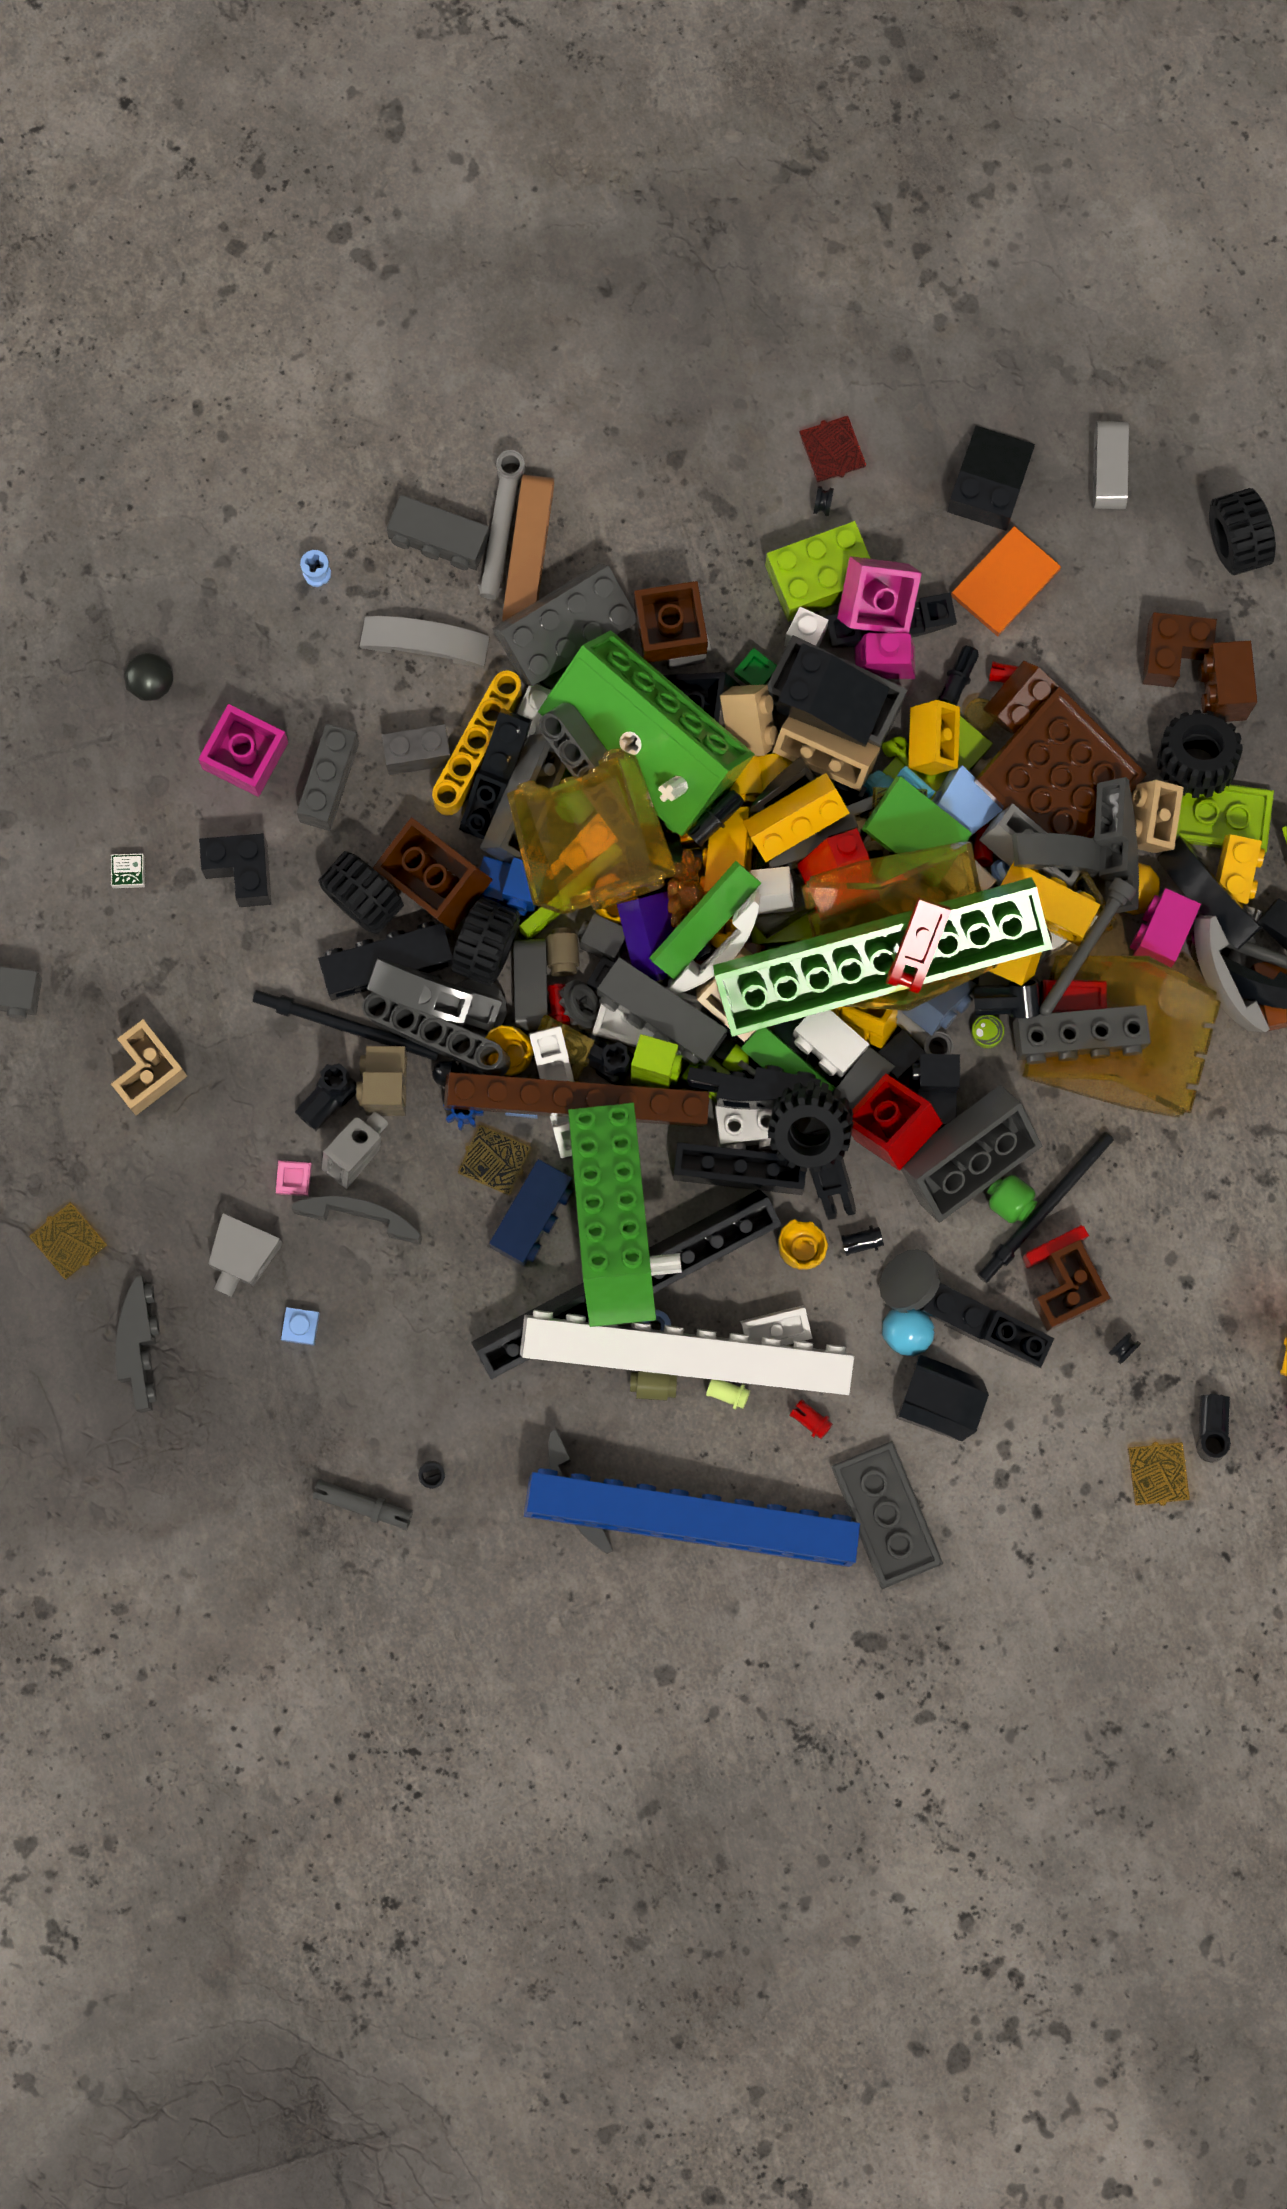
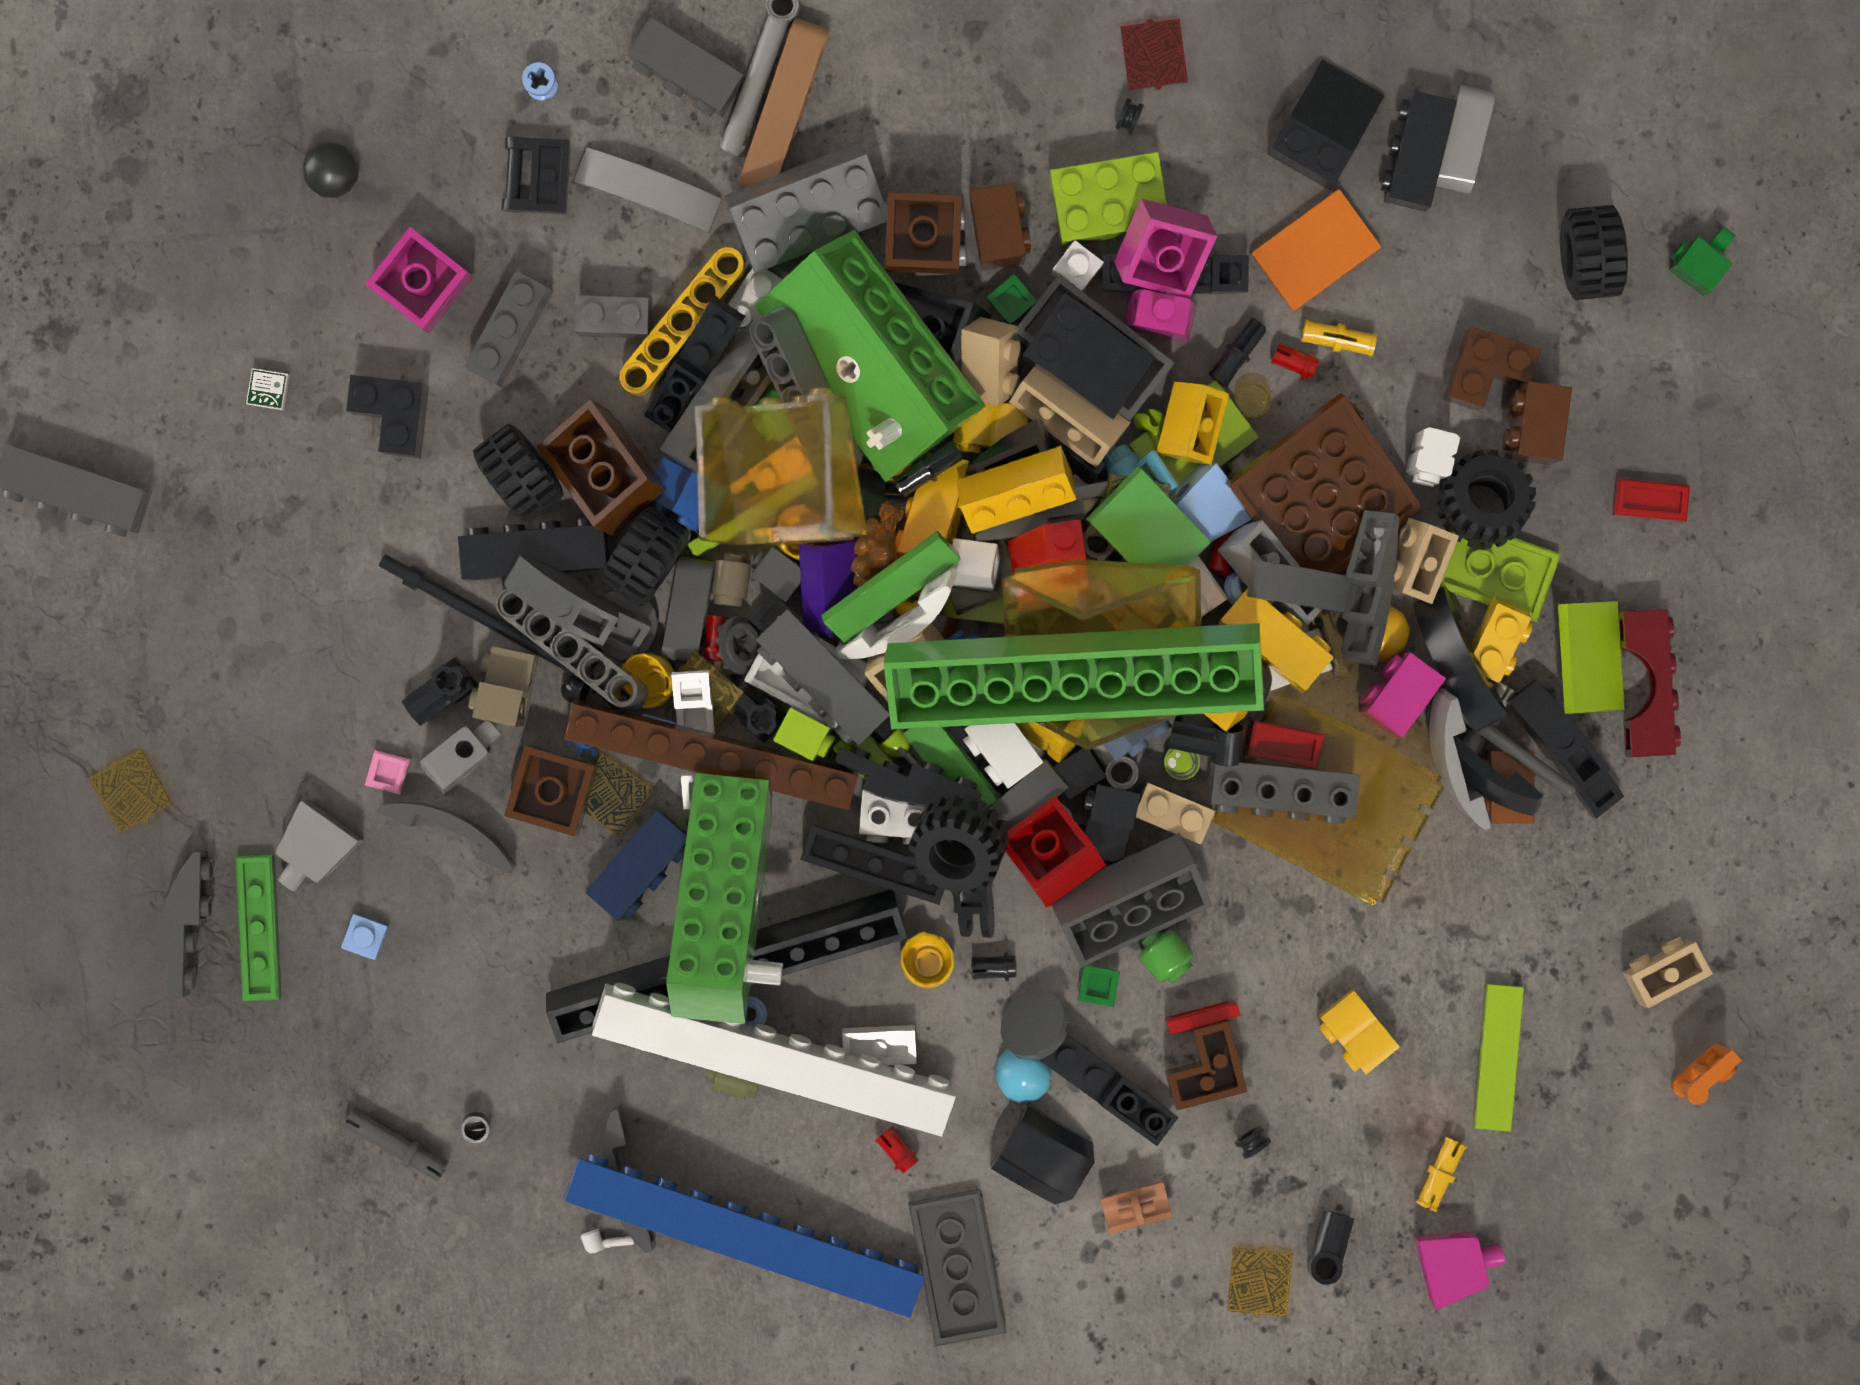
camera: 15 degrees right, 10 degrees up
(154, 1069) = (256, 621): tan brick -> none
(203, 1337) = (258, 927): none -> bright green tile
(337, 646) = (548, 175): none -> black plate
(442, 1161) = (551, 790): none -> reddish brown brick
(556, 1557) = (593, 1241): none -> white hand
(728, 1393) = (820, 1110): yellowish green pin -> none
(732, 608) = (997, 226): none -> reddish brown brick
(919, 944) = (1115, 679): plate -> none
(958, 1238) = (1098, 985): none -> green plate
(987, 1071) = (1174, 813): none -> tan brick
(1005, 1253) = (1146, 1011): black bar -> none
(1019, 696) = (1299, 394): reddish brown brick -> none
(1034, 1425) = (1136, 1207): none -> nougat hips
(1042, 648) = (1362, 342): none -> yellow pin
(1074, 481) = (1418, 150): none -> black brick
(1119, 894) = (1356, 650): dark grey piece -> none
(1144, 726) = (1432, 456): none -> white brick
(1195, 1233) = (1358, 1032): none -> yellow brick

